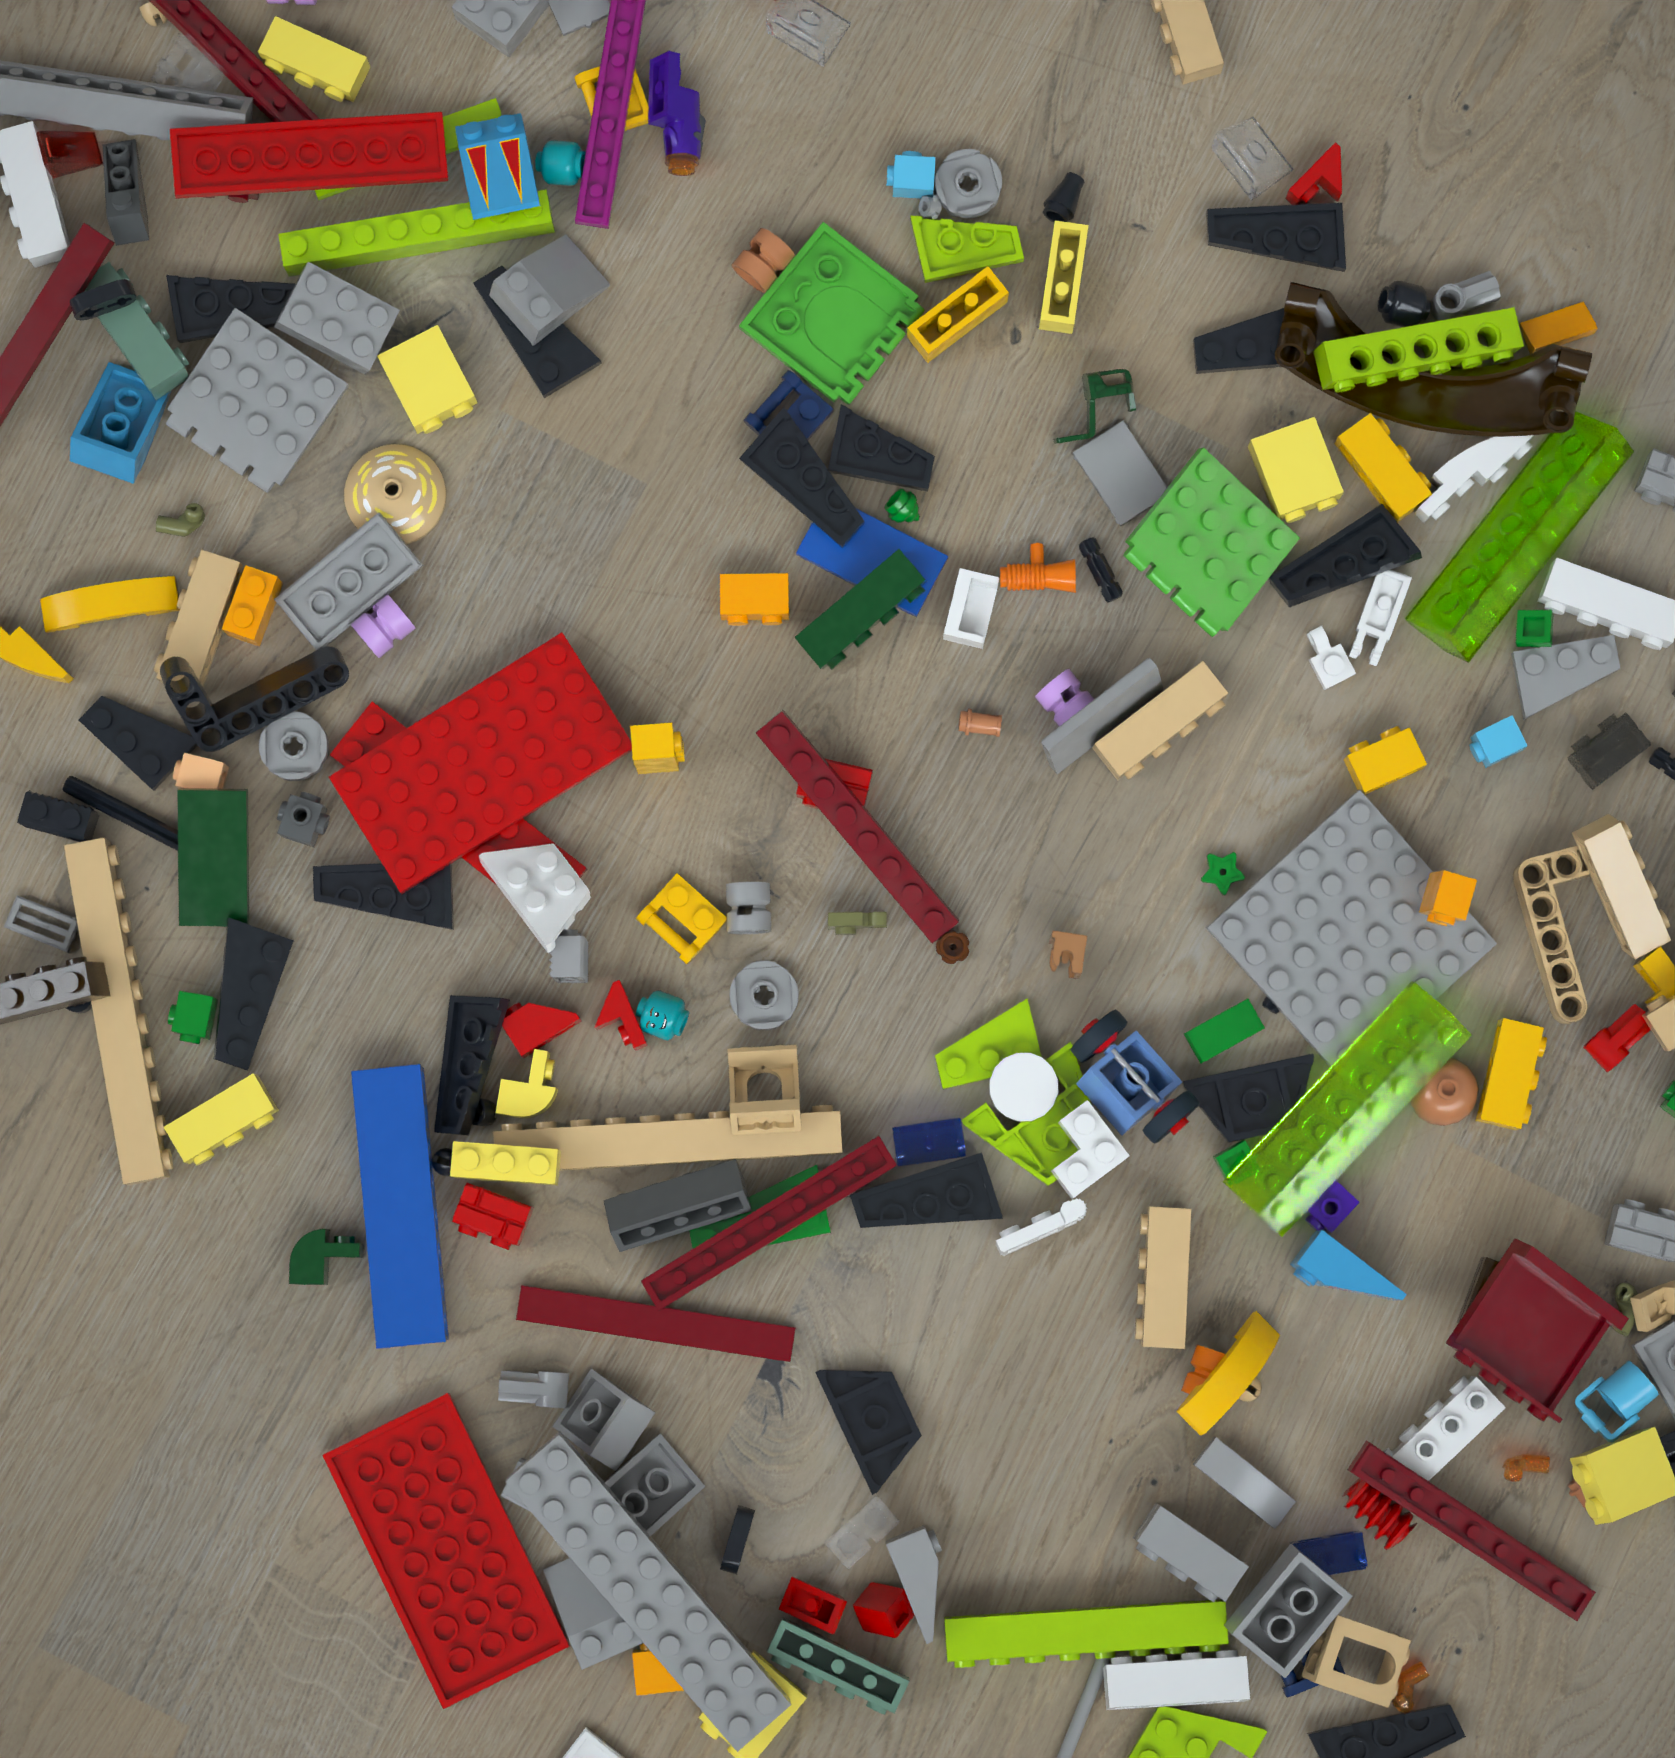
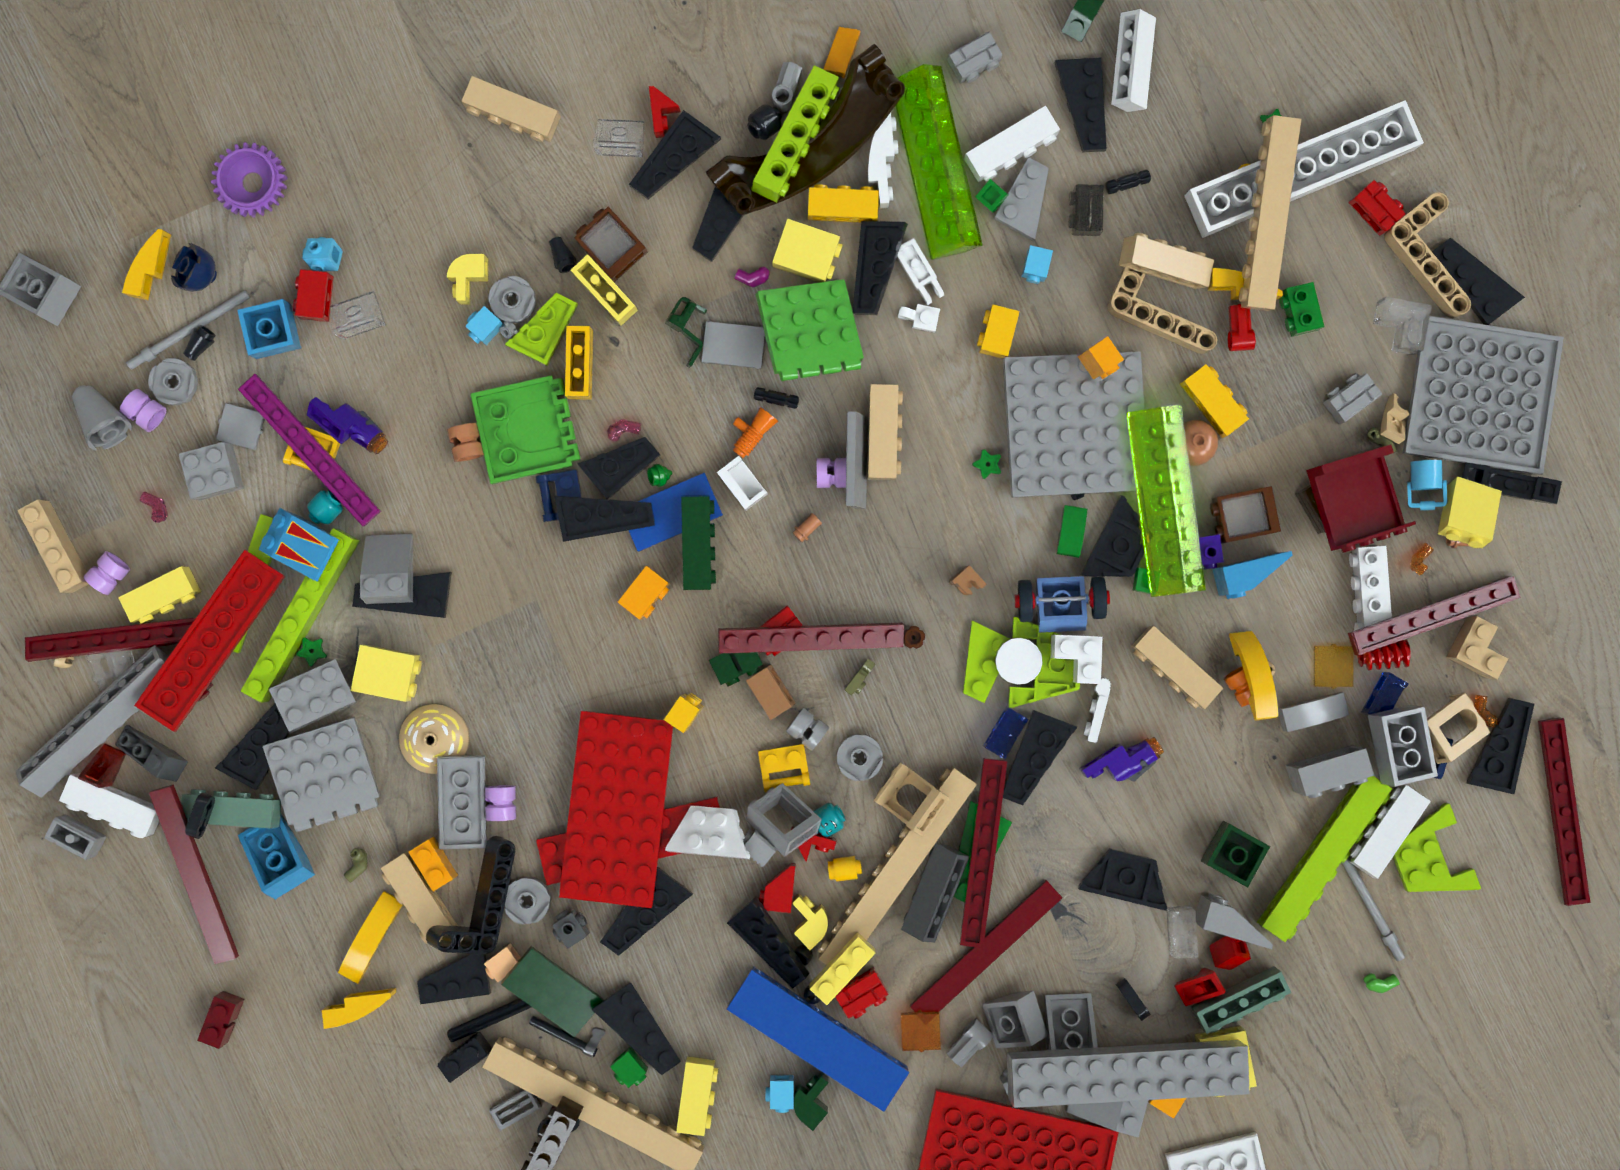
camera: 50 degrees left, 5 degrees up
(178, 953) = (589, 1049): none -> black piece
(302, 1214) = (780, 1093): none -> medium azure brick
(387, 287) = (316, 646): none -> green plate
(502, 1320) = (920, 1031): none -> clear orange piece
(611, 986) = (795, 807): none -> light grey window
(621, 1080) = (844, 868): none -> yellow brick
(756, 765) = (732, 665): none -> dark green piece
(757, 832) = (771, 692): none -> medium nougat hinge
(924, 421) = (622, 426): none -> clear pink arm
(957, 104) = (465, 270): none -> light yellow brick
(1004, 1310) = (1123, 763): none -> dark purple plate
(1004, 1520) = (1235, 853): none -> dark green brick
(1122, 242) = (610, 243): none -> window
(1215, 435) = (753, 279): none -> magenta arm
(1316, 1465) = (1333, 666): none -> clear yellow piece
(1407, 1216) = (1245, 514): none -> window
(1466, 1610) = (1472, 649): none -> tan brick

